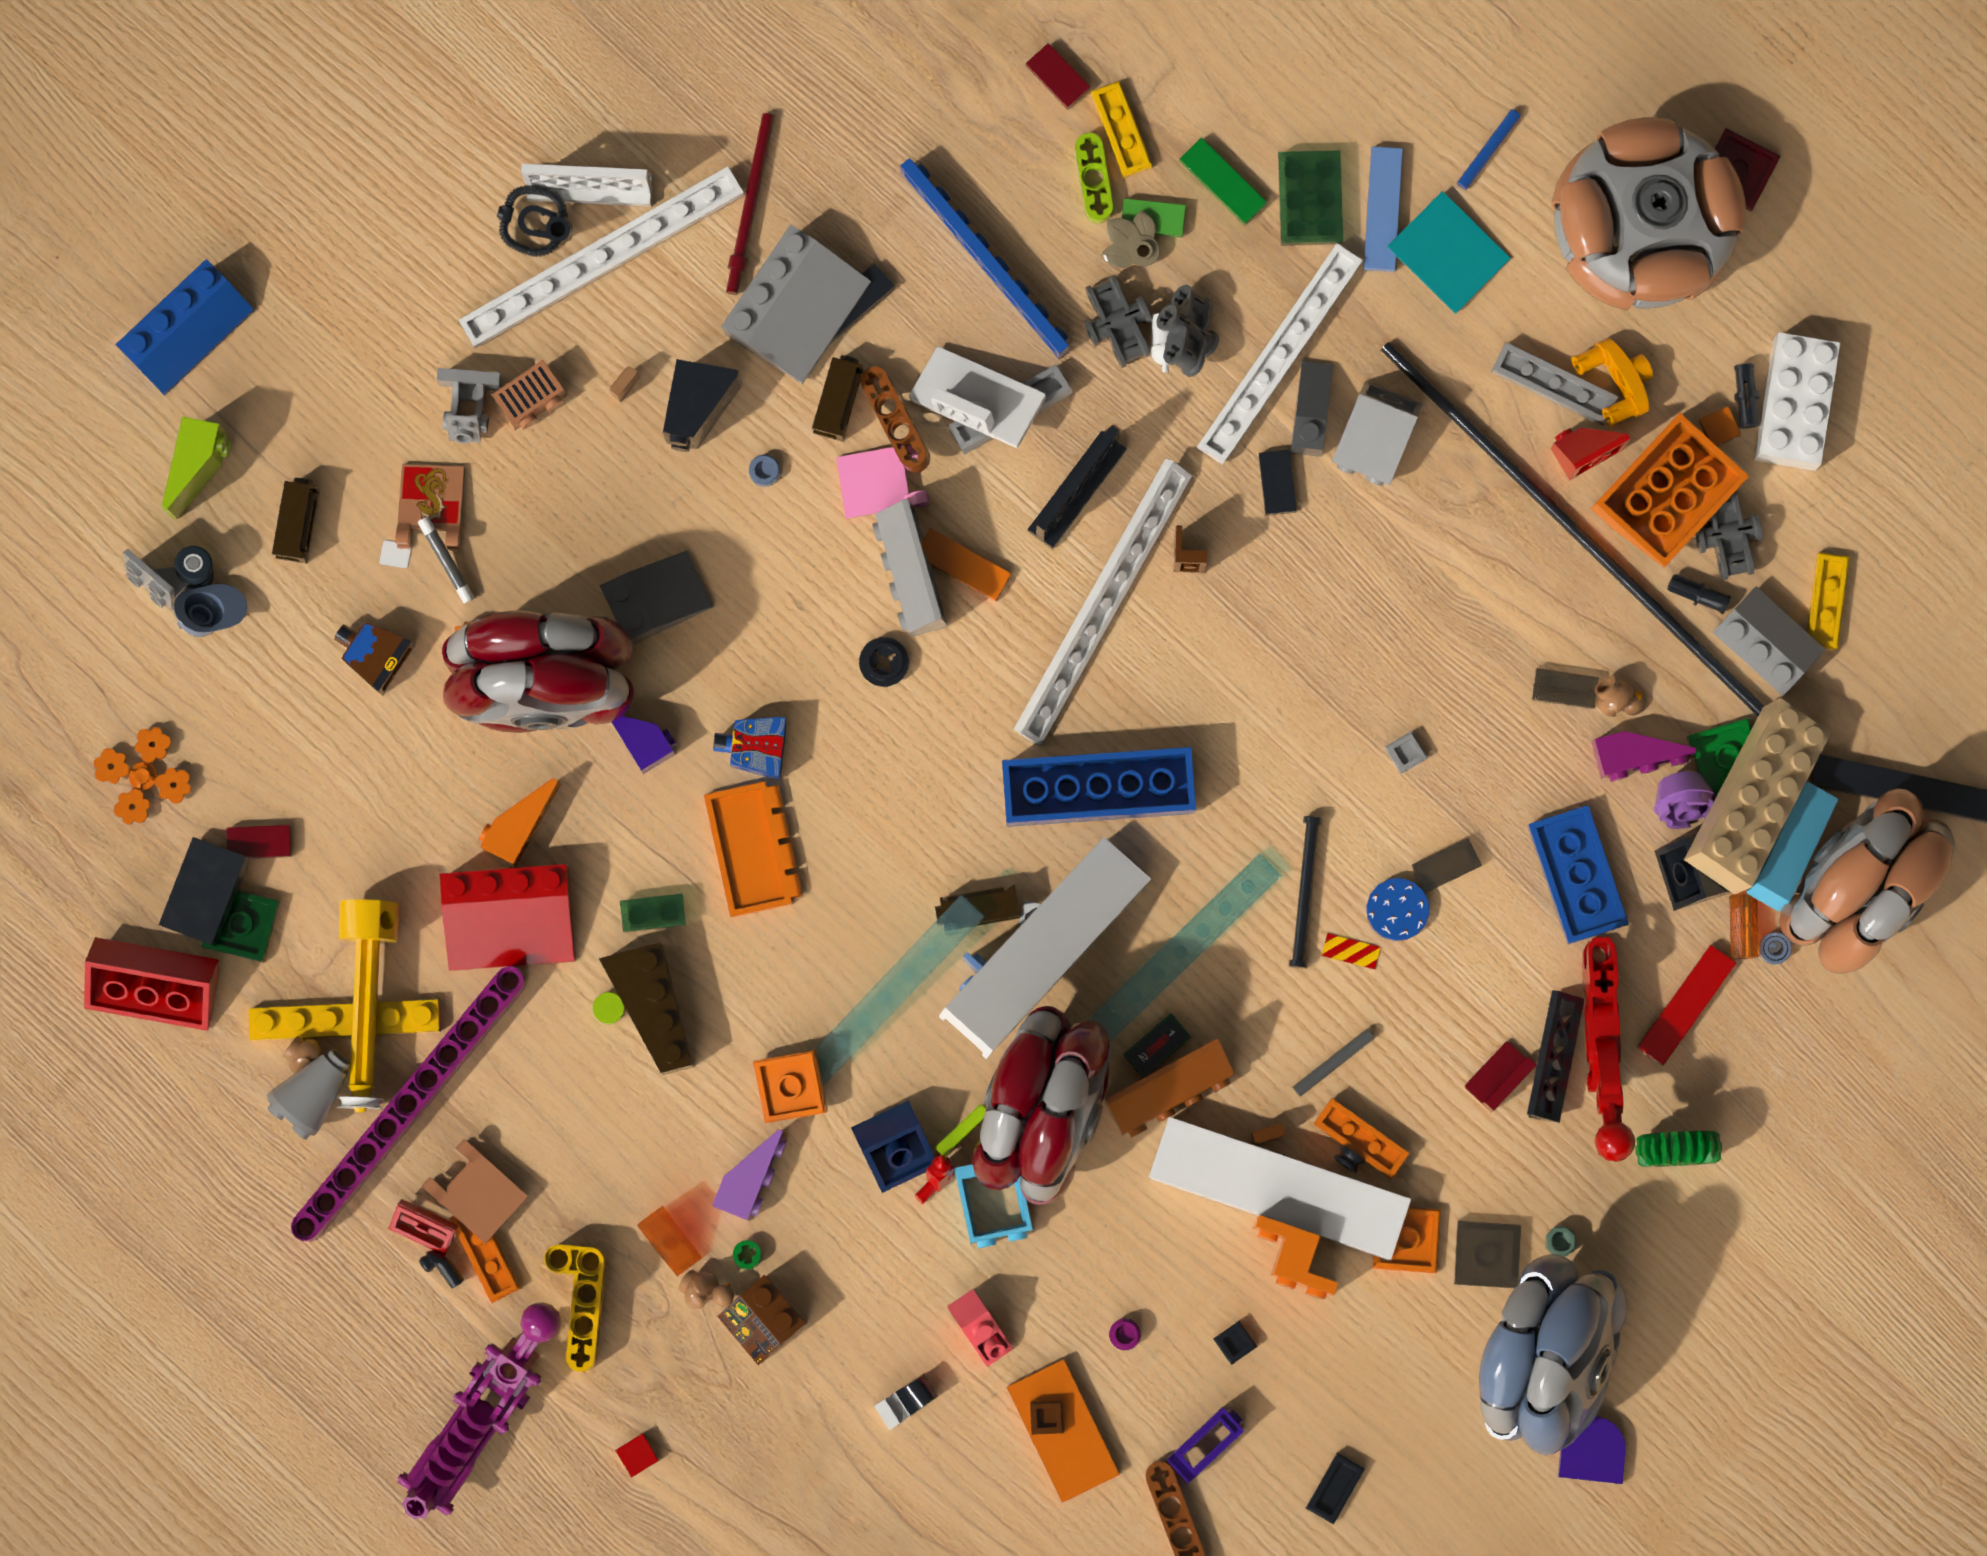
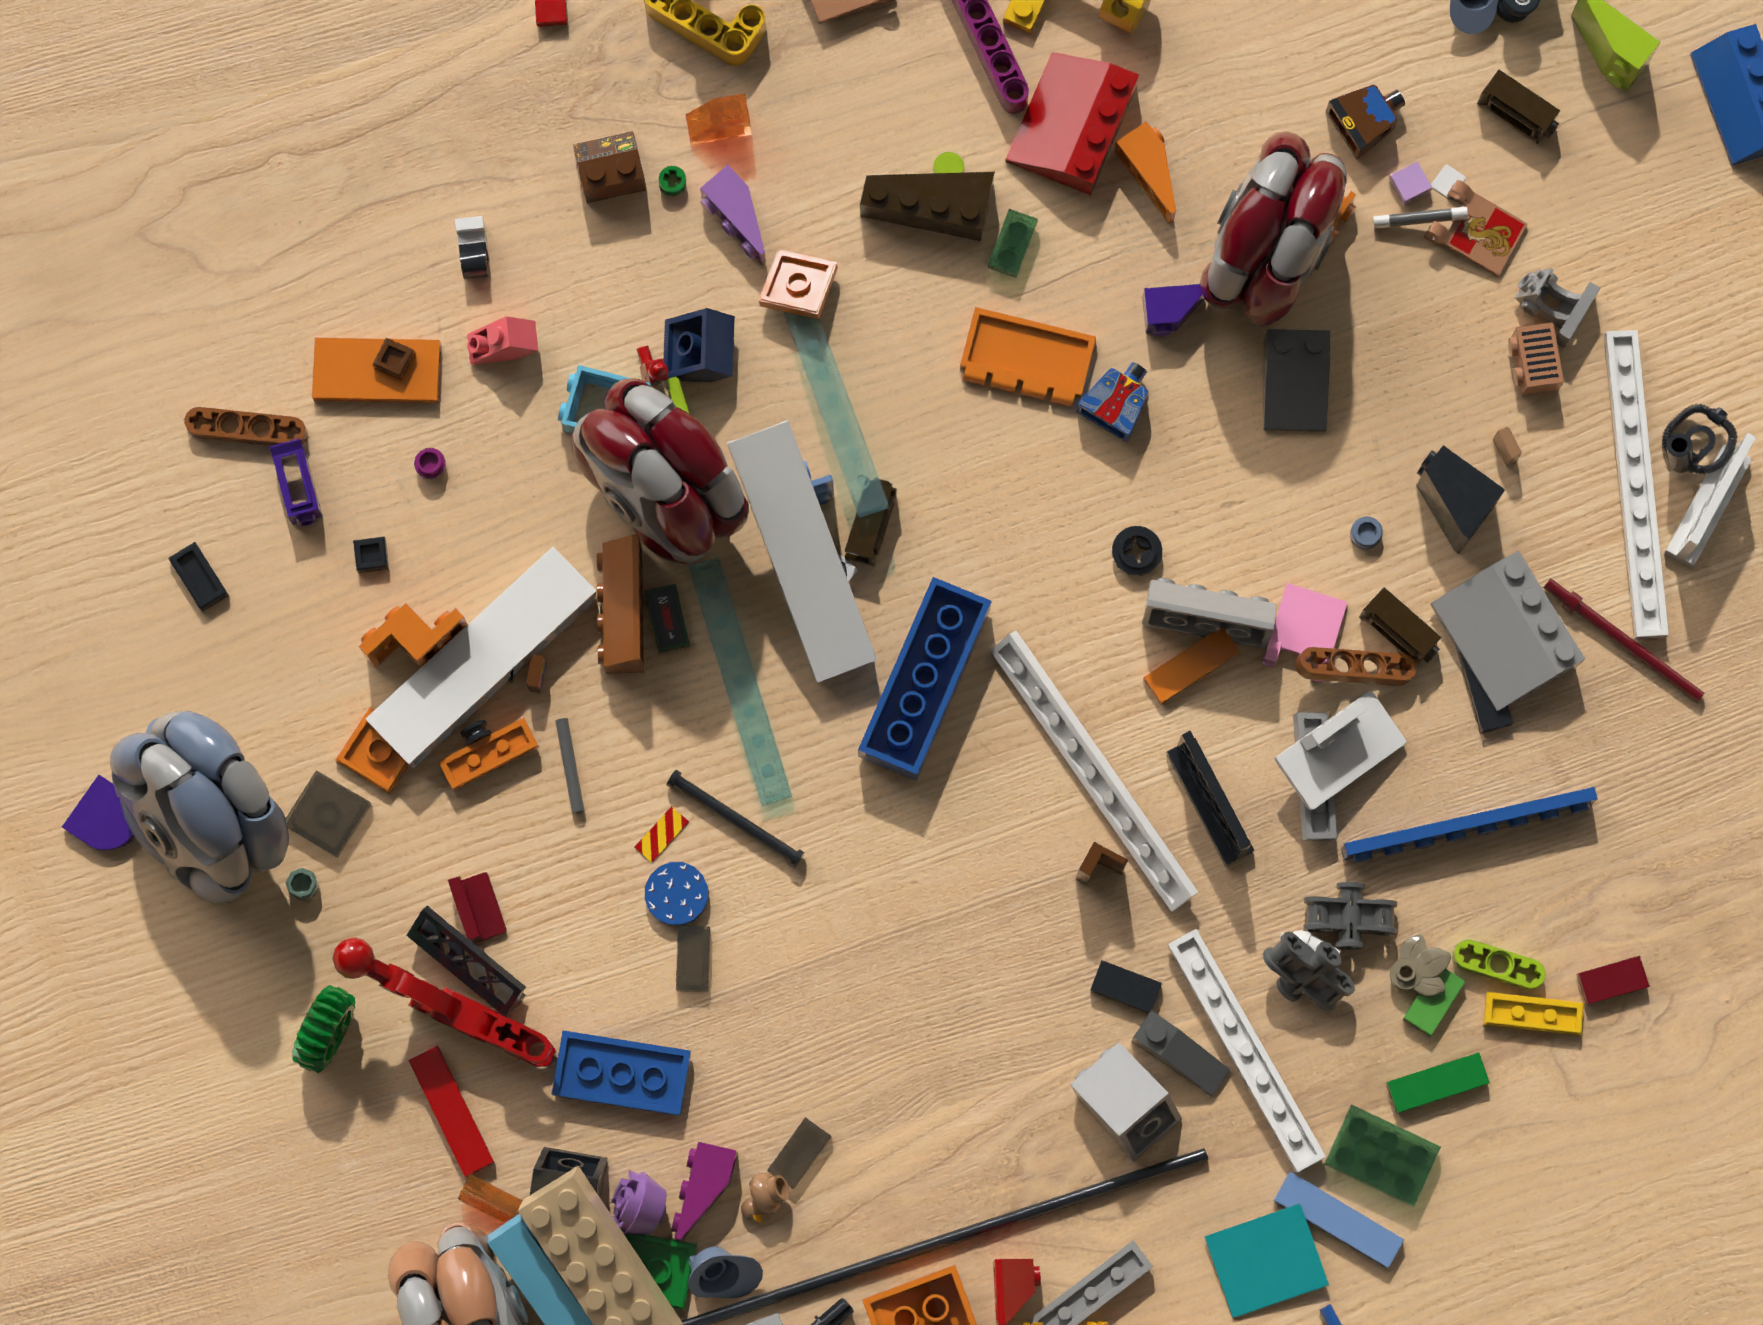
camera: 115 degrees right, 5 degrees down
(415, 585) = (1410, 182): none -> lavender tile
(702, 1287) = (663, 128): medium nougat animal -> none
(1406, 752) = (815, 976): light grey tile -> none
(1702, 700) = (723, 1275): none -> sand blue piece
(1774, 948) = (459, 1213): sand blue tile -> none

